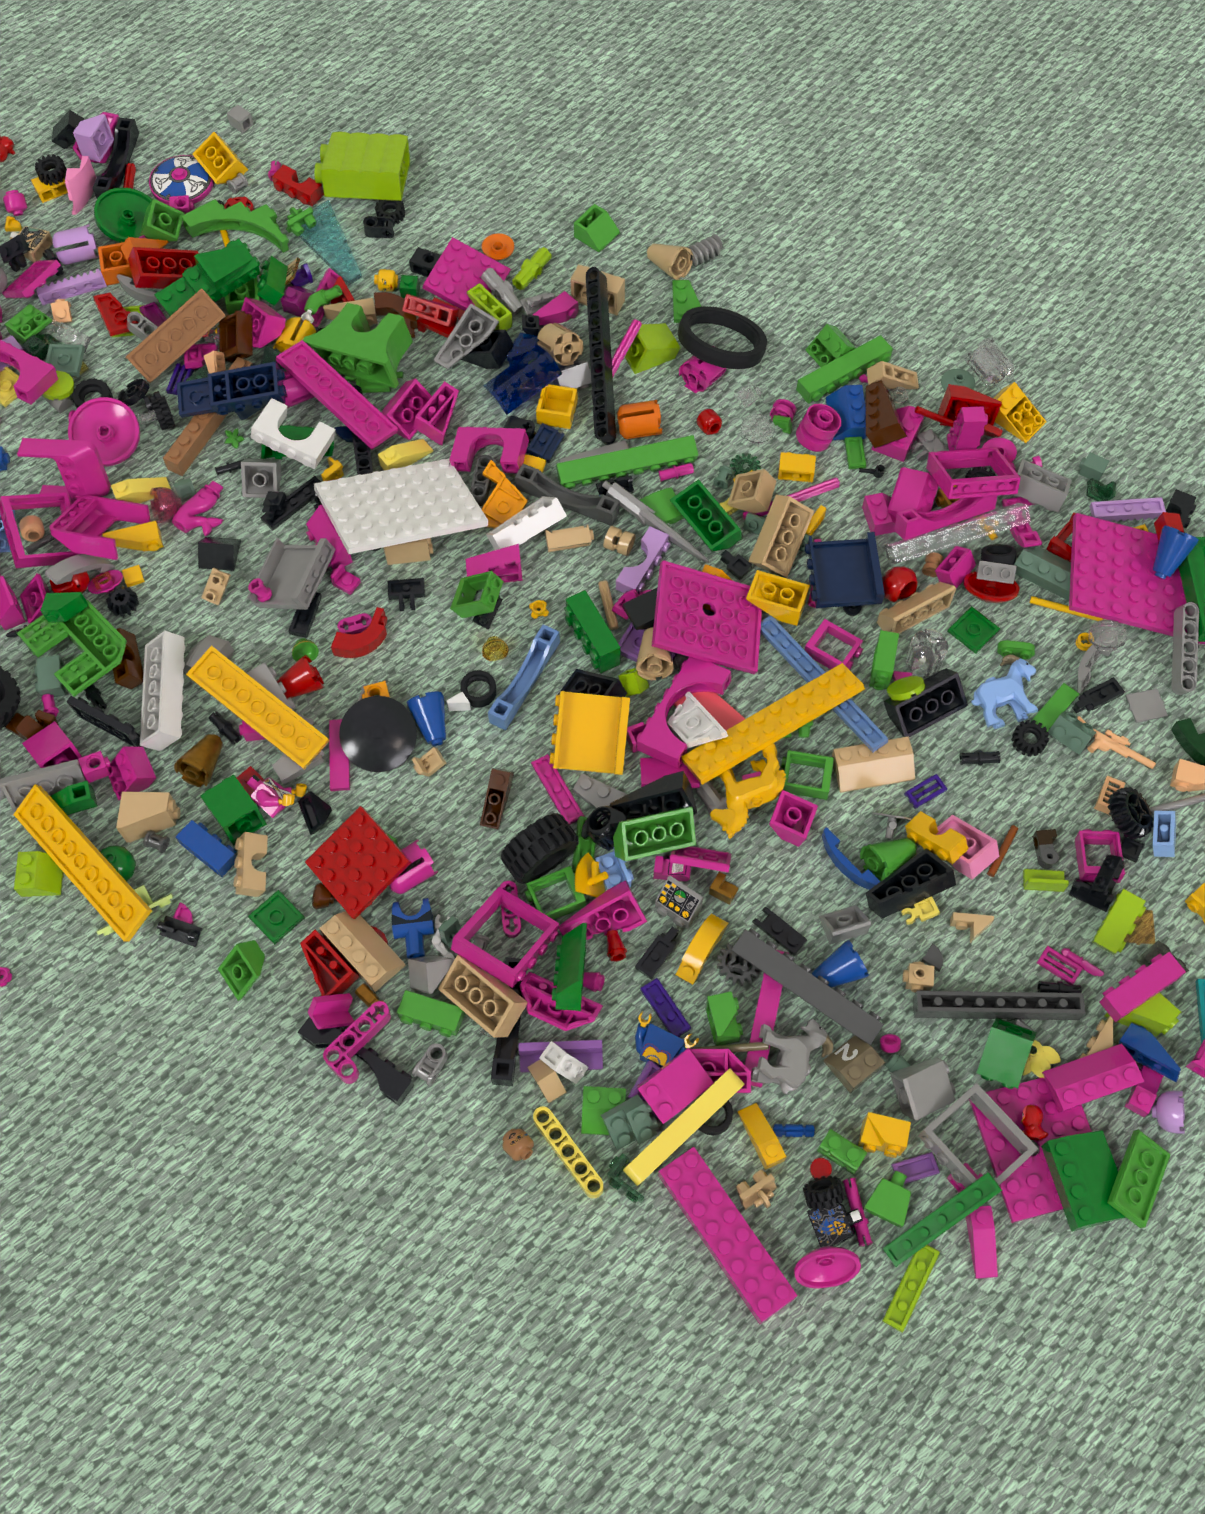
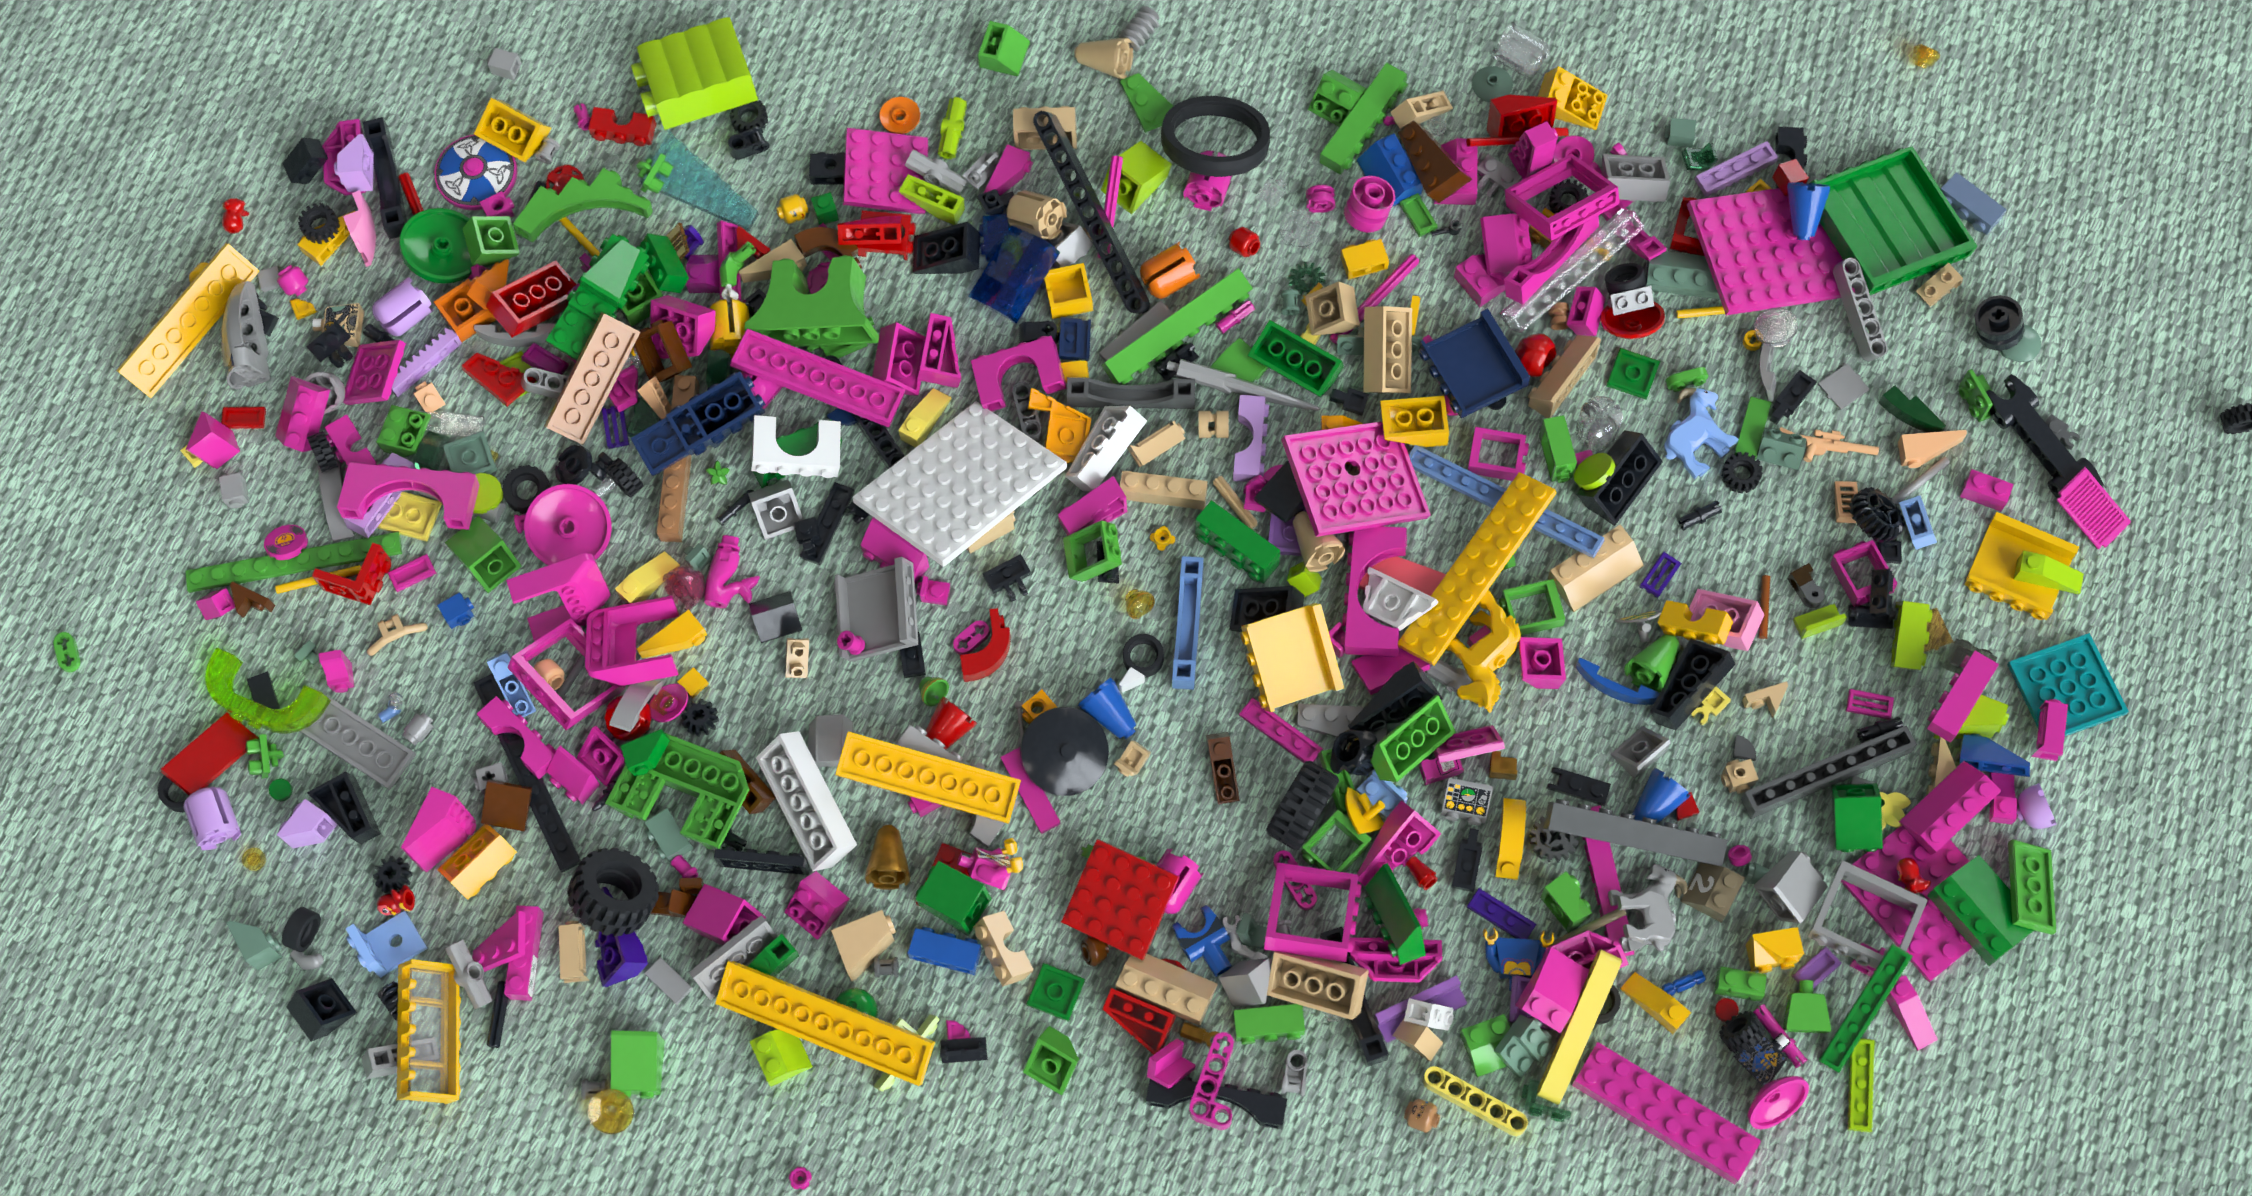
camera: 20 degrees left, 5 degrees up
(34, 422) = (483, 554): none -> bright green slope
(89, 761) = (781, 923): dark pink brick -> none
(225, 727) = (891, 812): black pin -> none
(314, 811) = (1038, 864): black slope -> none
(334, 471) = (854, 474): yellow bracket -> none
(468, 334) = (928, 242): light grey wedge -> none
(555, 572) = (1164, 490): none -> tan brick
(758, 1193) = (1679, 1060): tan hips -> none
(783, 422) = (1326, 210): bright green tile -> none
(863, 986) = (1687, 808): none -> red tile
(1087, 966) = (1891, 692): dark pink piece -> none

